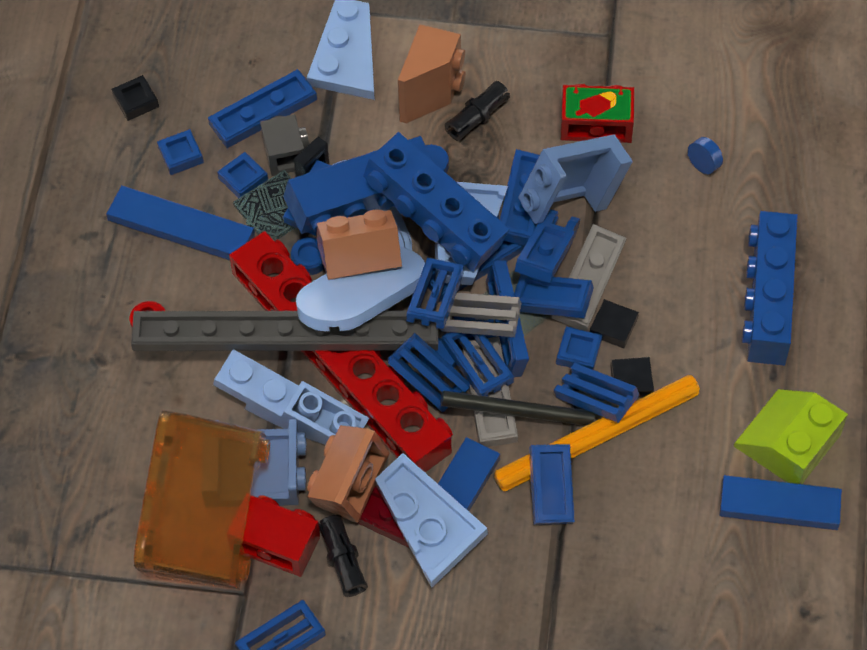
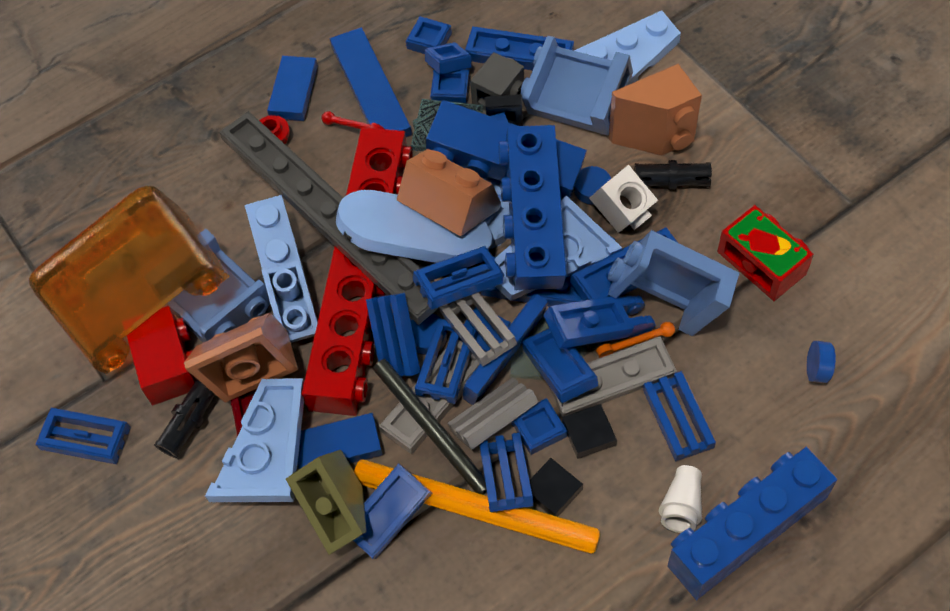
camera: 50 degrees right, 0 degrees up
(121, 274) = (293, 87): none -> blue tile
(179, 273) = (329, 118): none -> red hinge
(220, 155) = (447, 58): none -> blue tile
(346, 99) = (574, 86): none -> medium blue panel
(470, 153) = (630, 186): none -> white brick
(515, 507) = (331, 499): none -> olive slope
(539, 366) = (492, 413): none -> light grey tile
(588, 218) = (666, 329): none -> orange hinge
(659, 260) = (666, 386): none -> blue tile
(719, 313) = (682, 502): none -> white cone

